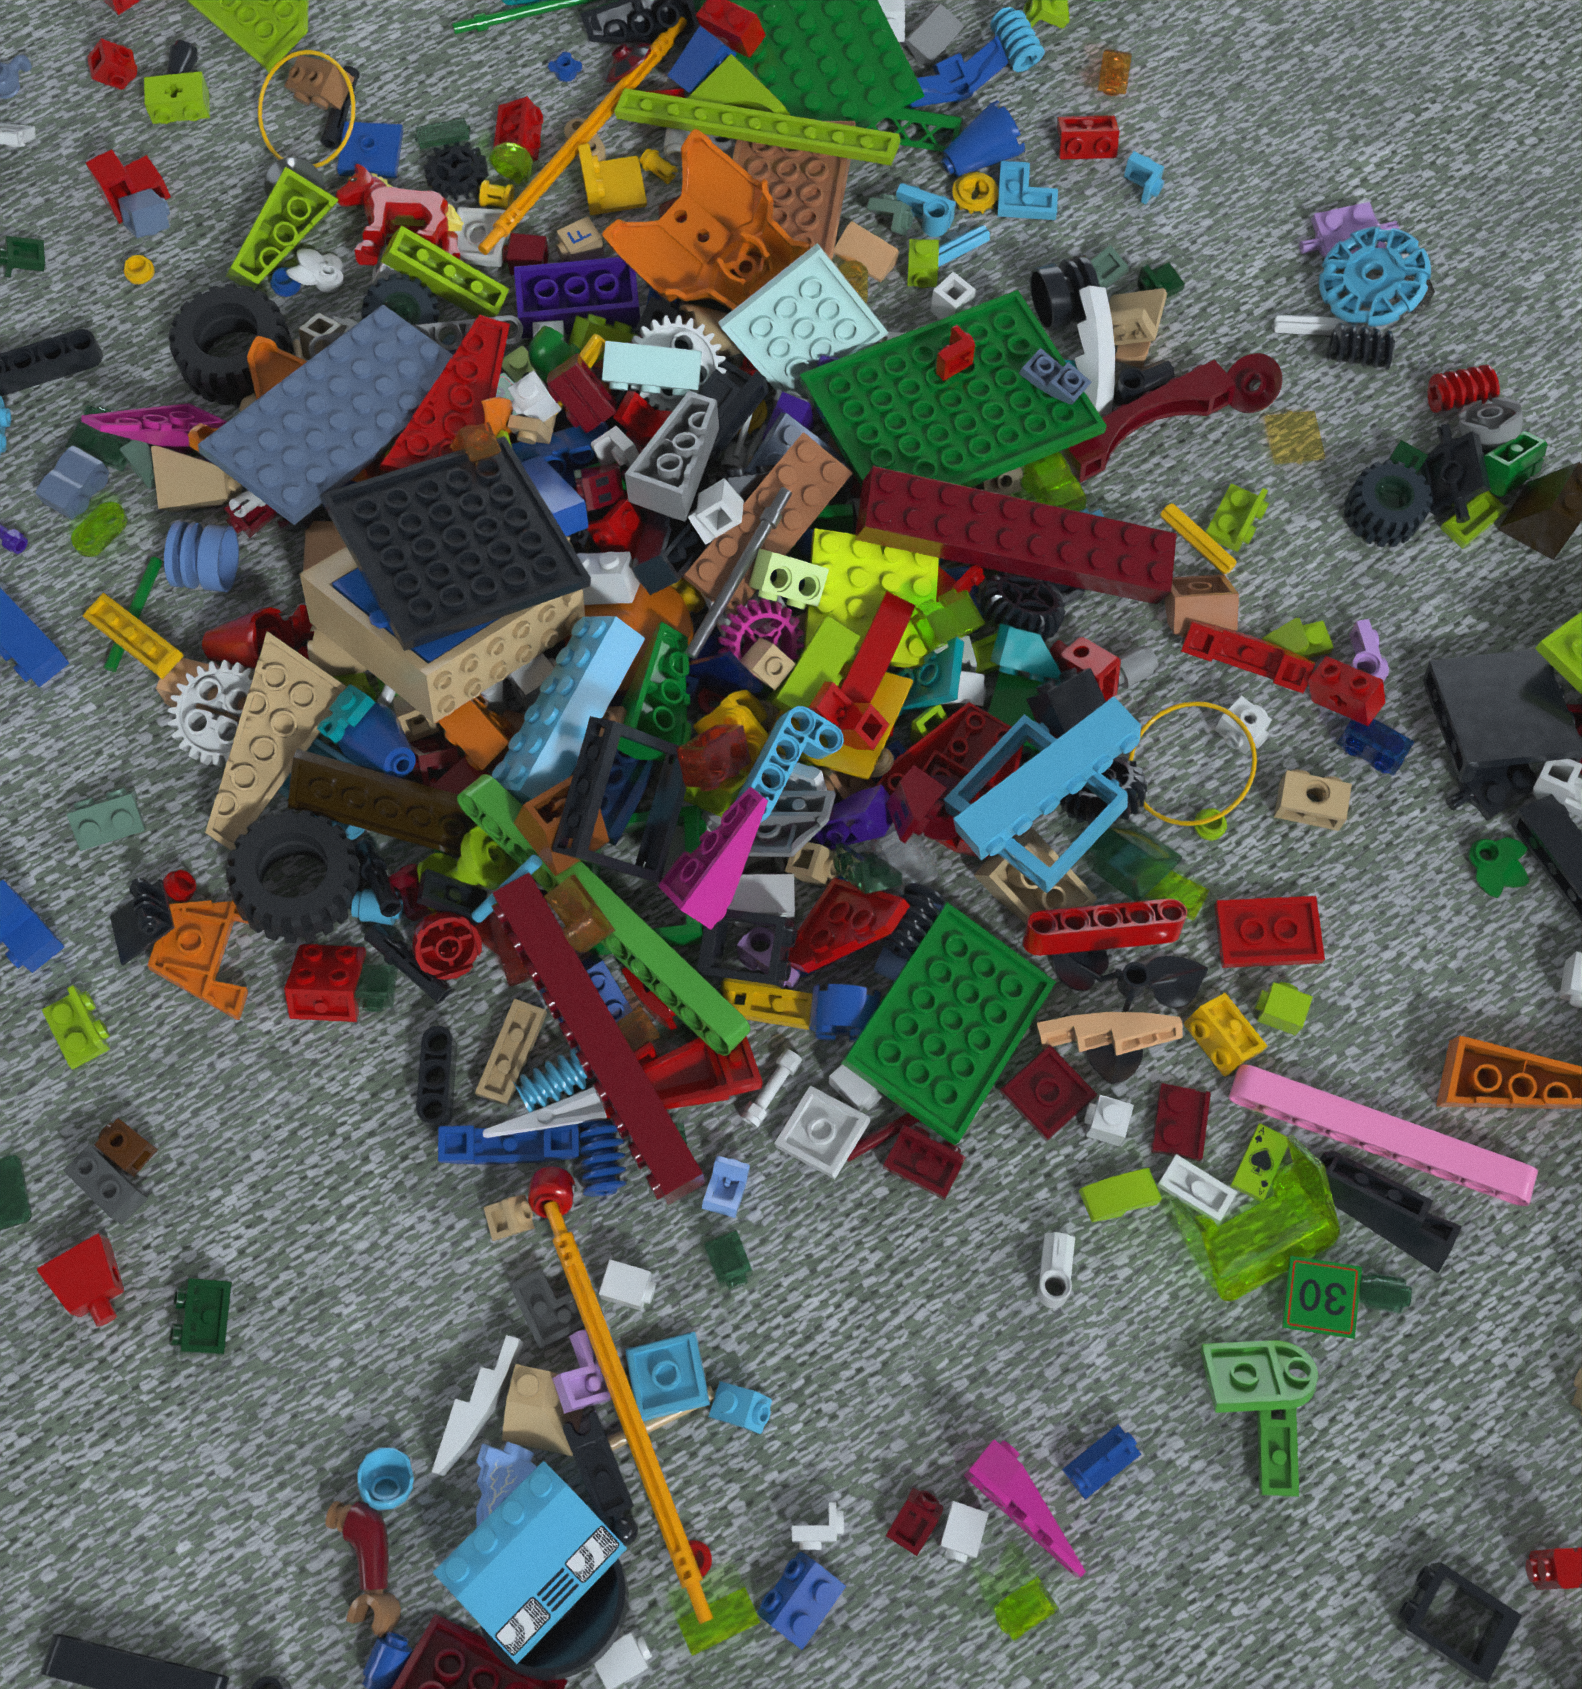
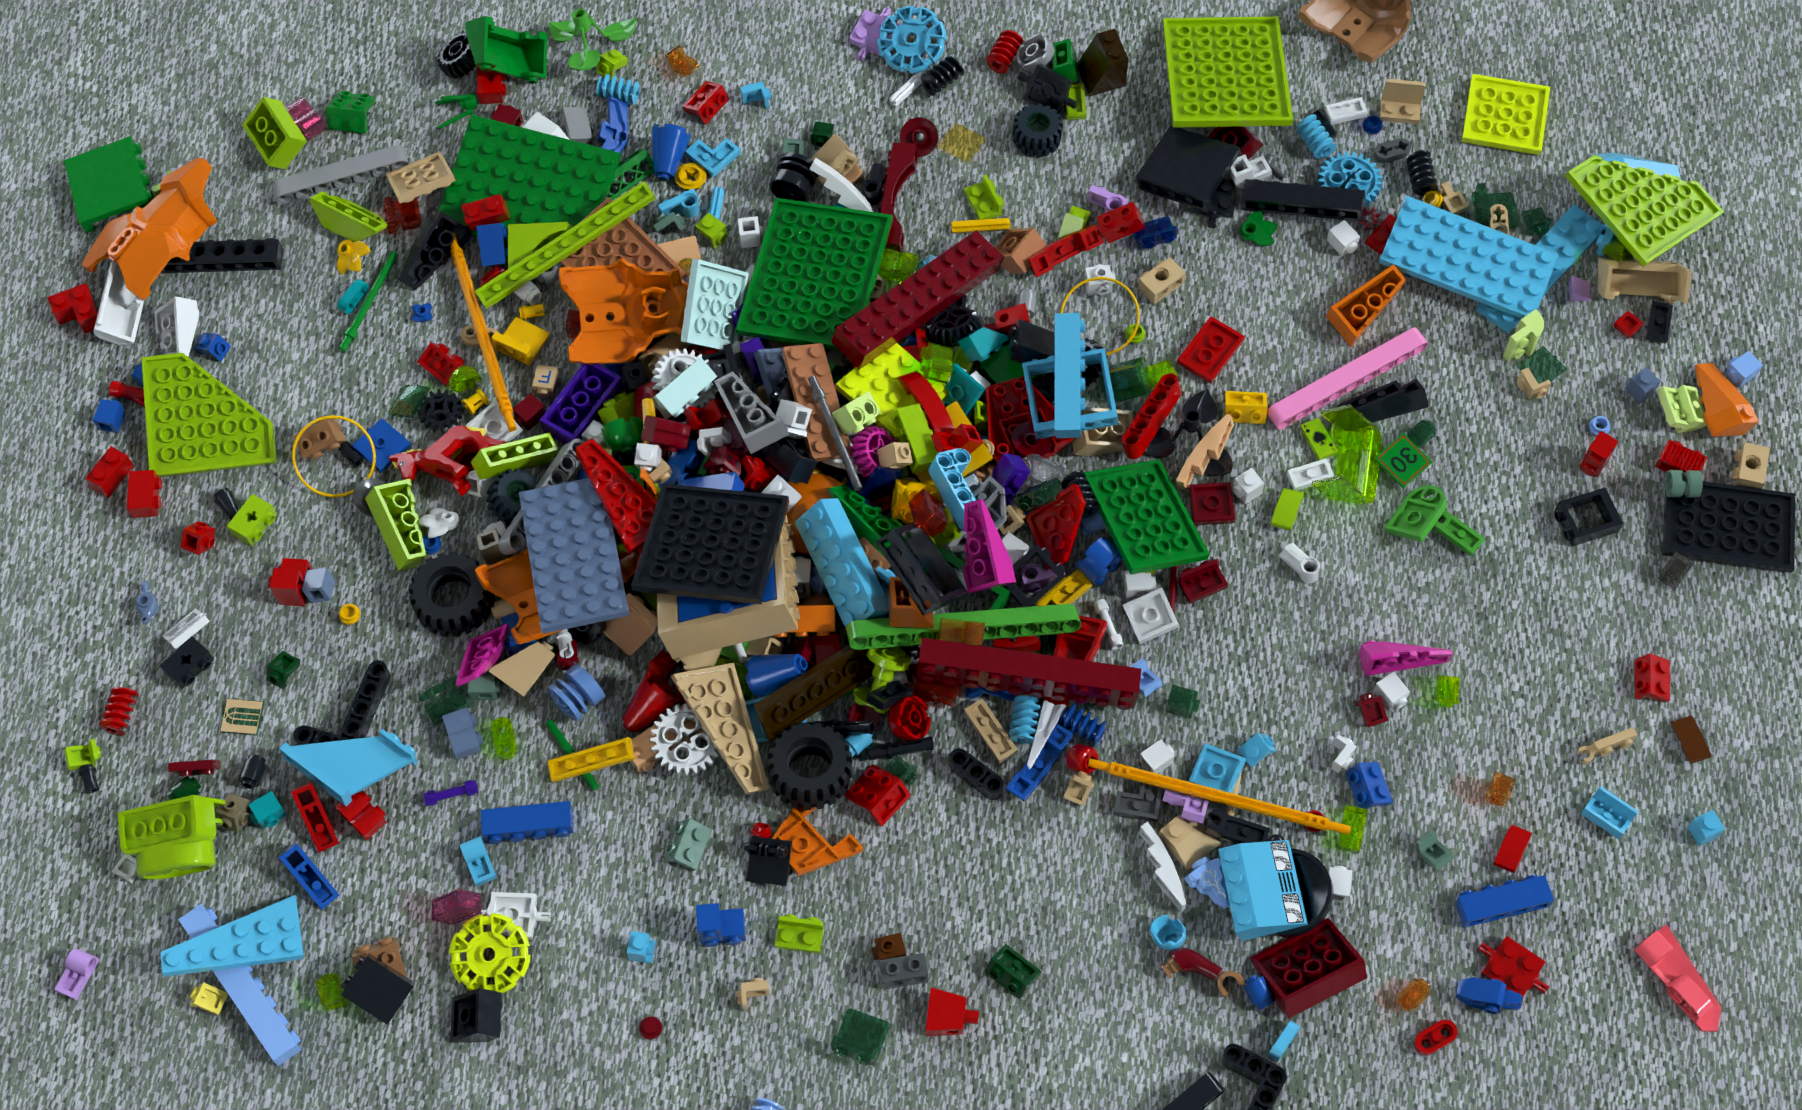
camera: 50 degrees left, 5 degrees down
(347, 710) = (745, 670): teal plate -> none
(477, 441) = (659, 494): clear orange bracket -> none
(485, 908) = (914, 658): medium azure bar -> none
(626, 60) = (452, 279): dish -> none
(913, 801) = (1027, 444): dark red slope -> none
(957, 355) = (793, 247): red bracket -> none
(1058, 381) = (850, 216): sand blue slope -> none
(1102, 1461) = (1405, 609): blue hinge -> none
(1180, 1122) = (1272, 458): dark red plate -> none
(1283, 1007) = (1254, 371): lime brick -> none
(1409, 455) = (1018, 102): dark green plate -> none

